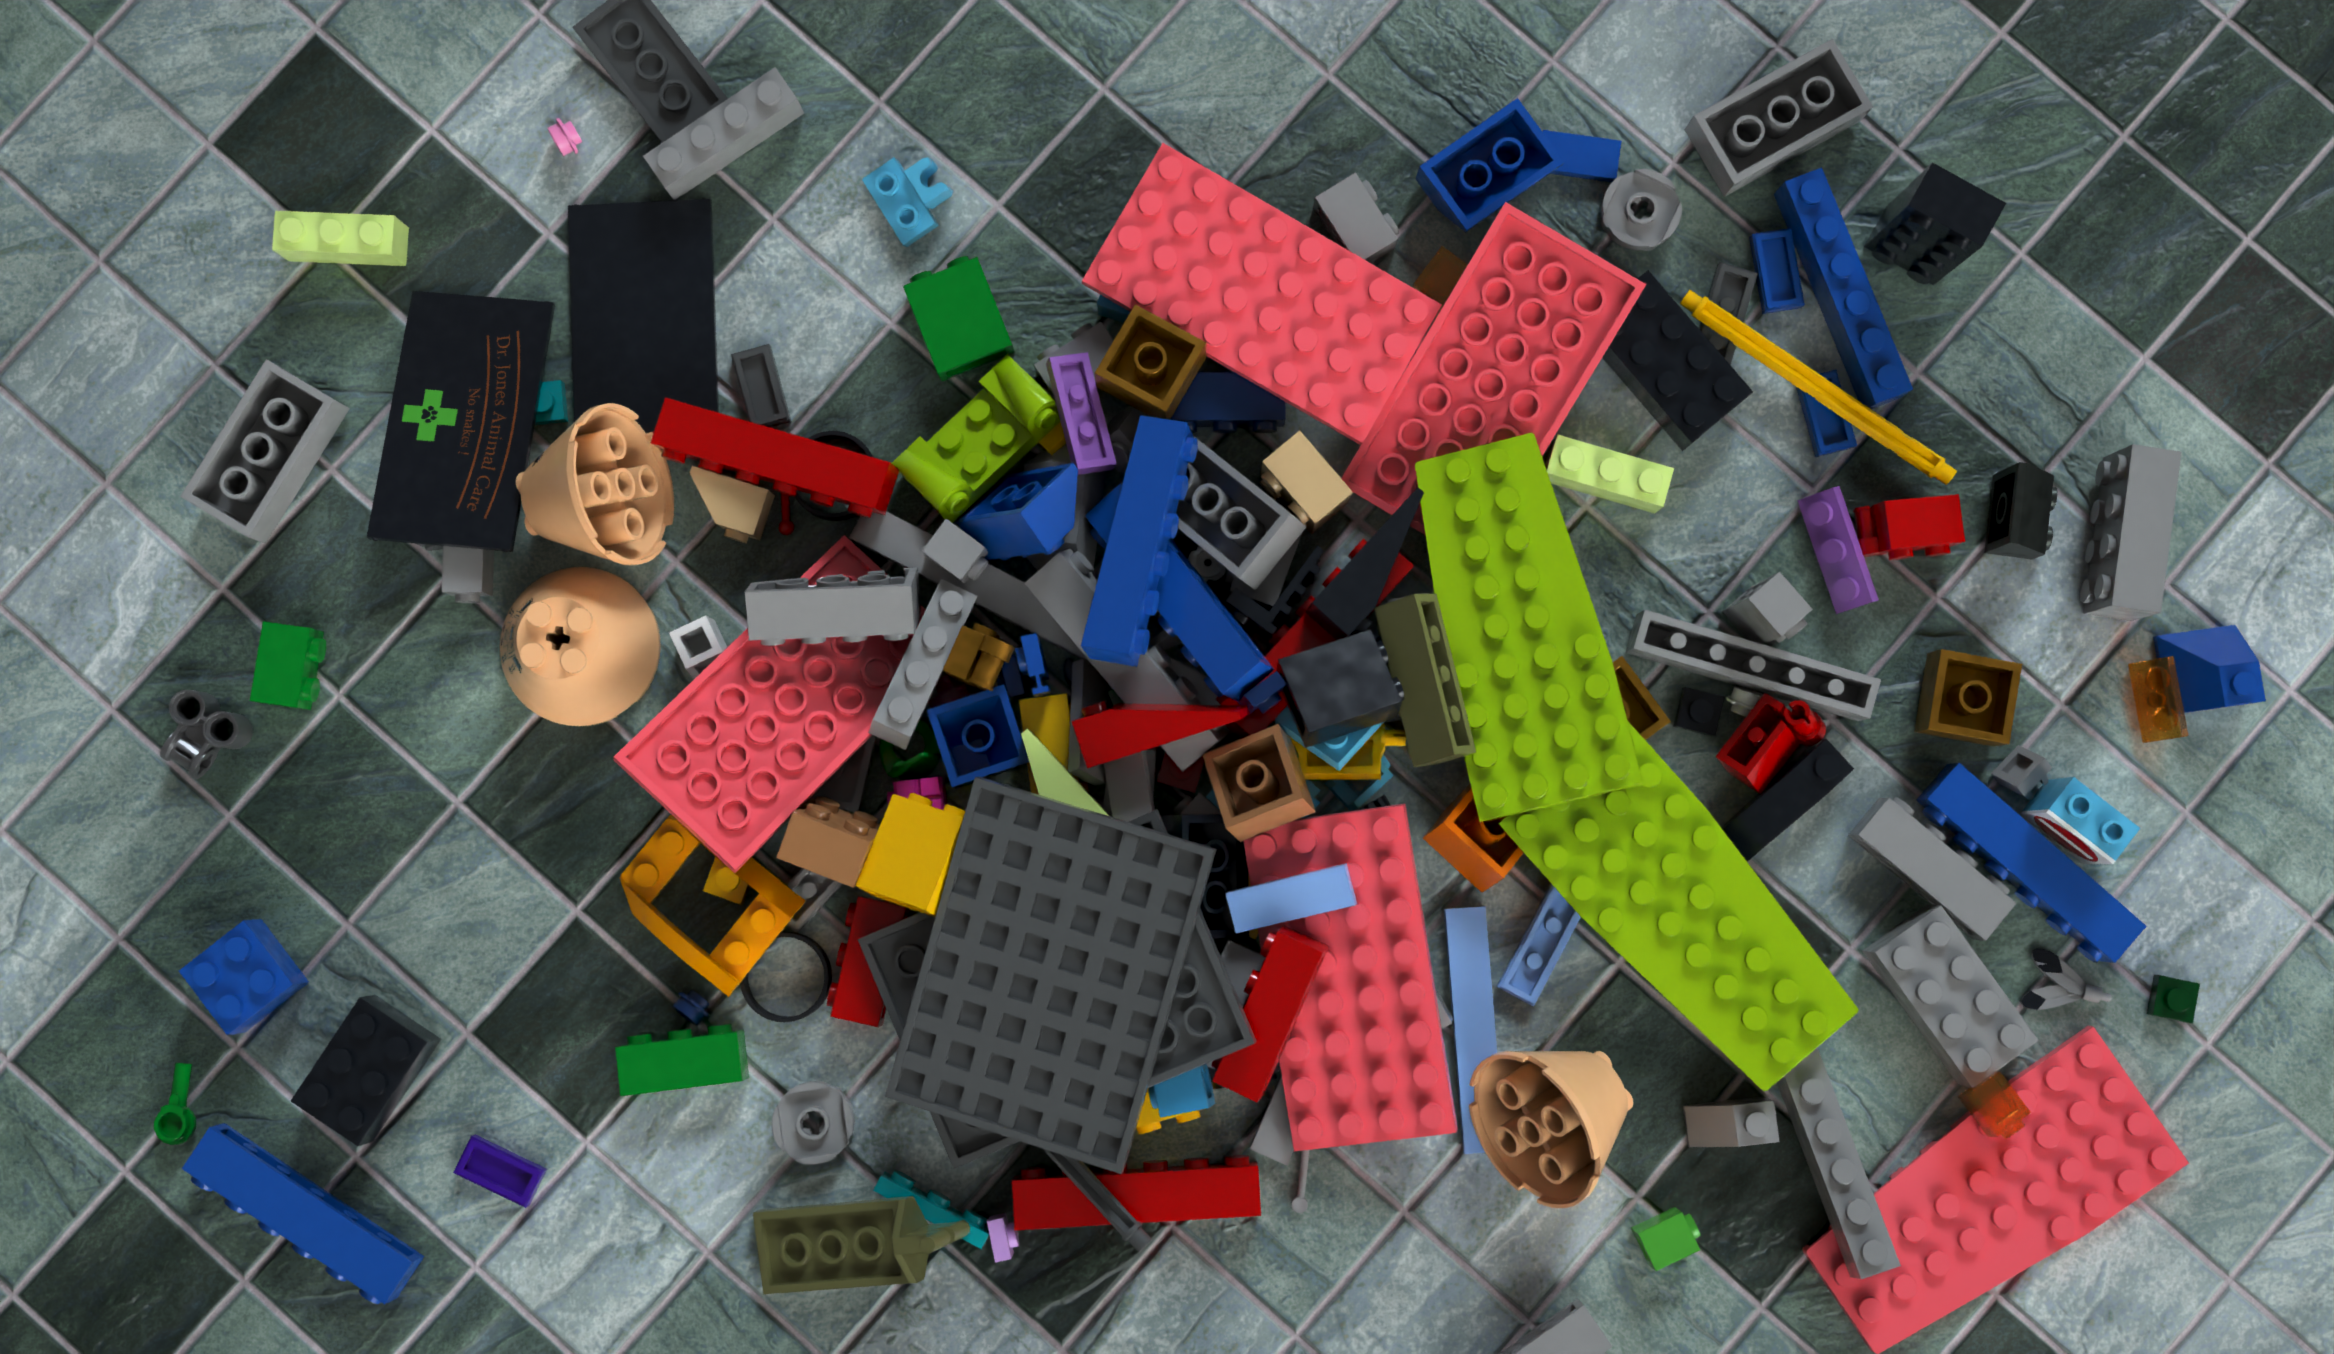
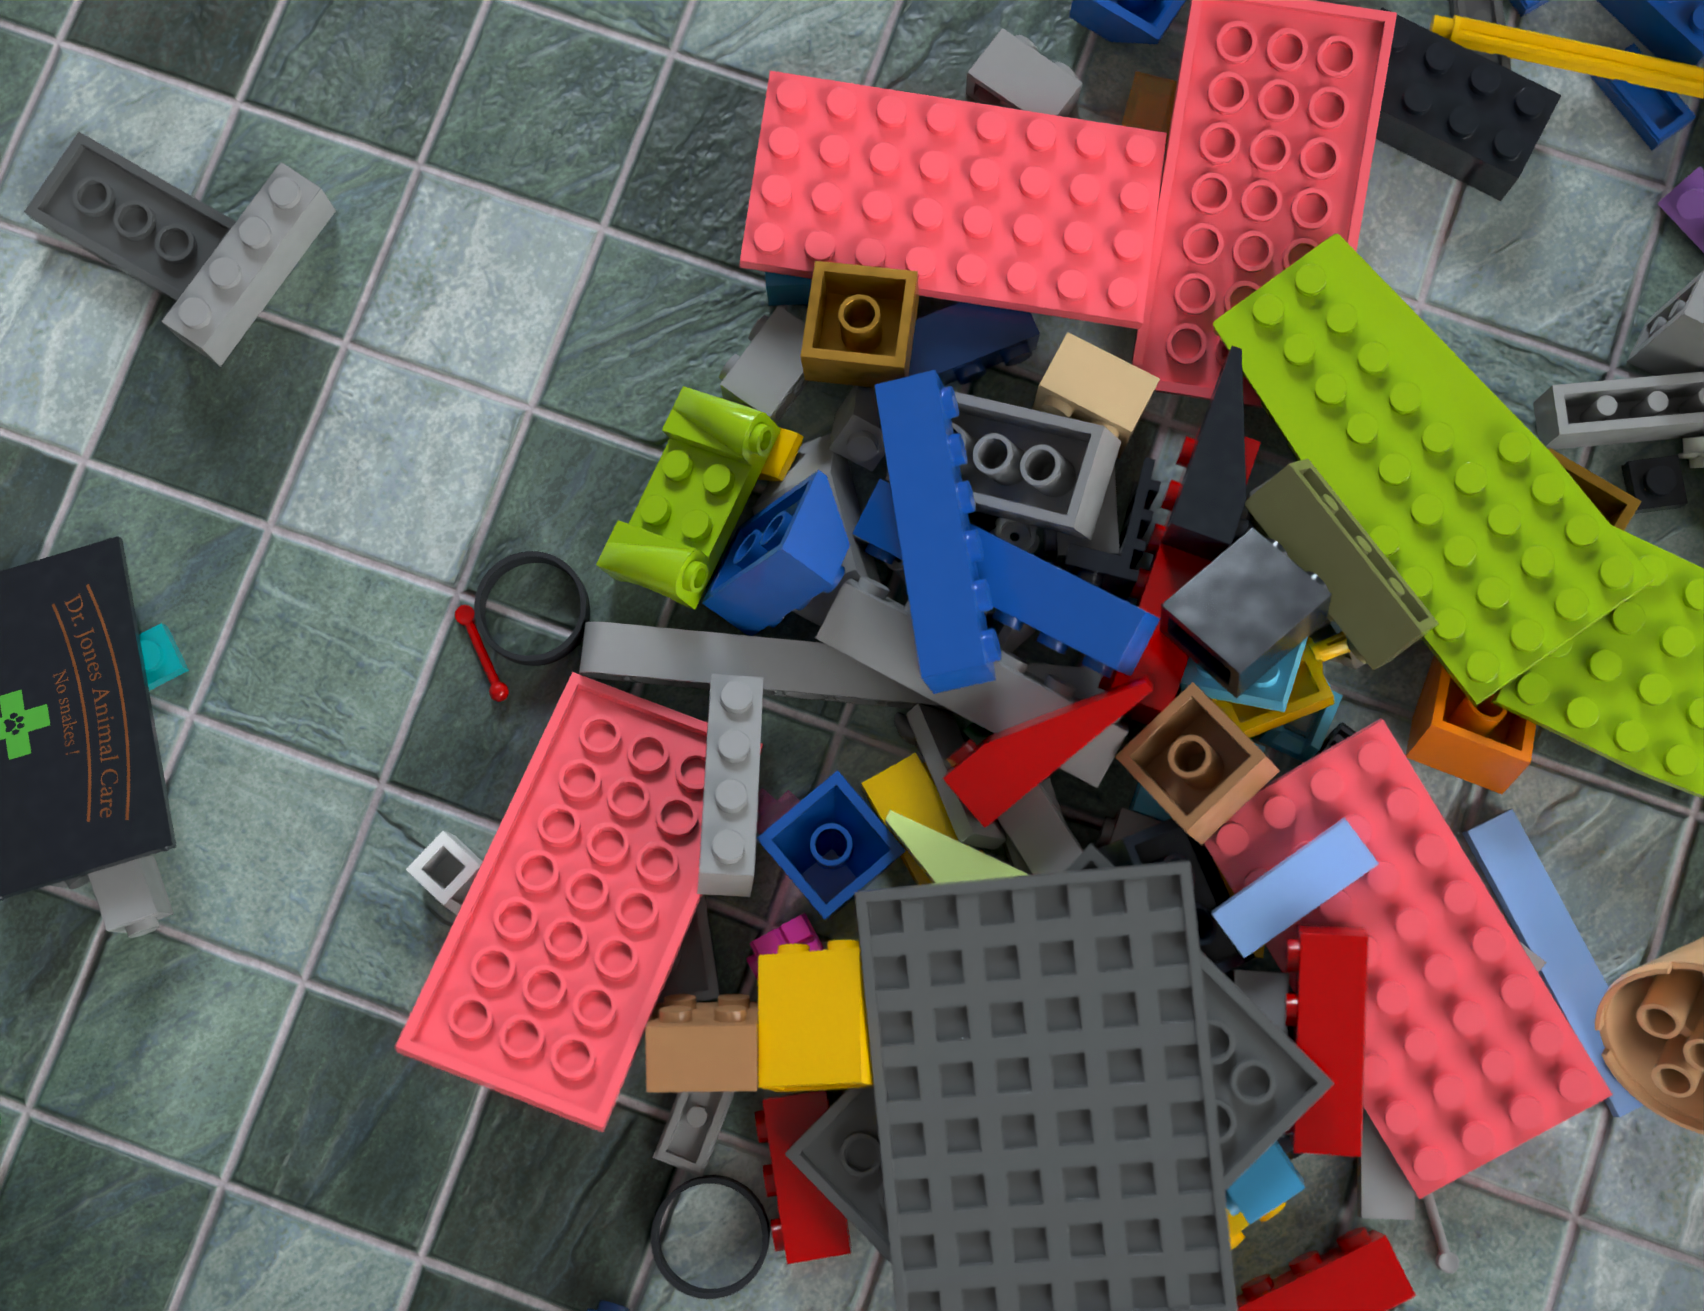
camera: 25 degrees left, 5 degrees down
(565, 137) = (62, 341): bright pink plate -> none
(580, 646) = (302, 933): light nougat cone -> none
(601, 488) = (255, 728): light nougat cone -> none
(643, 306) = (240, 530): black piece -> none
(725, 883) = (593, 1149): yellow plate -> none
(734, 504) = (427, 687): tan slope -> none
(748, 936) = (645, 1207): light orange wedge -> none
(761, 386) = (405, 540): dark grey tile -> none
(775, 457) = (454, 610): red brick -> none
(834, 608) = (595, 759): light grey wedge -> none
(907, 198) = (493, 256): medium azure plate -> none
(919, 765) = (770, 912): green piece -> none
(956, 552) = (717, 635): light grey brick -> none
(958, 317) = (608, 368): green brick -> none
(977, 657) = (794, 750): pearl gold hinge -> none
(1012, 679) = (838, 757): dark blue plate -> none
(1032, 662) = (861, 732): blue plate -> none
(1081, 413) = (800, 414): medium lavender plate -> none
(1172, 775) = (1081, 798): red plate -> none
(1264, 695) = (1162, 653): dark blue plate -> none
(1539, 948) = (1595, 829): light blue tile -> none
(1608, 474) = (1441, 252): yellowish green brick -> none

